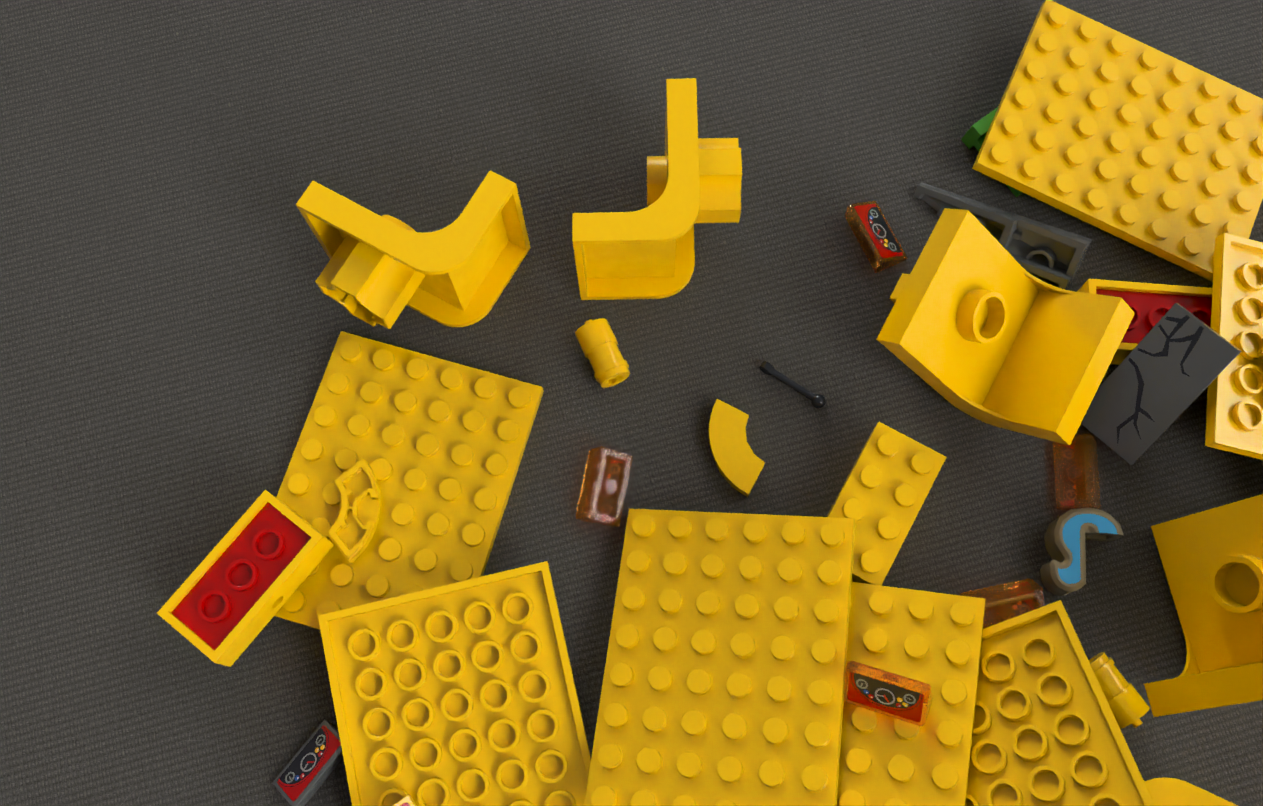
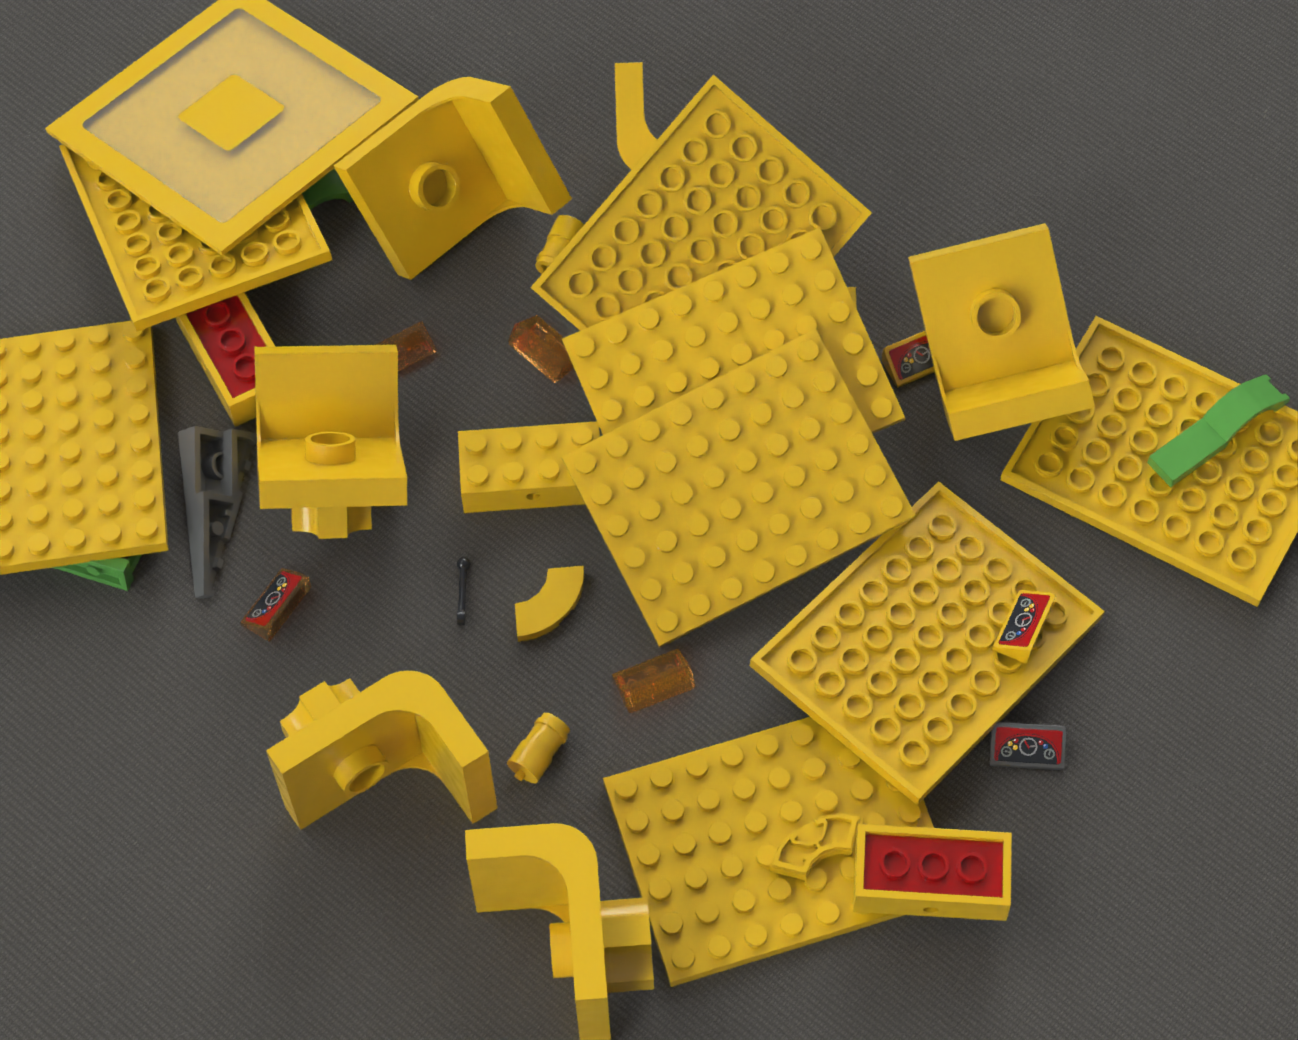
camera: 125 degrees left, 10 degrees down
(887, 693) = (682, 356): slope -> none
(1066, 546) = (467, 325): dark tan animal -> none
(1157, 383) = (291, 311): dark grey tile -> none

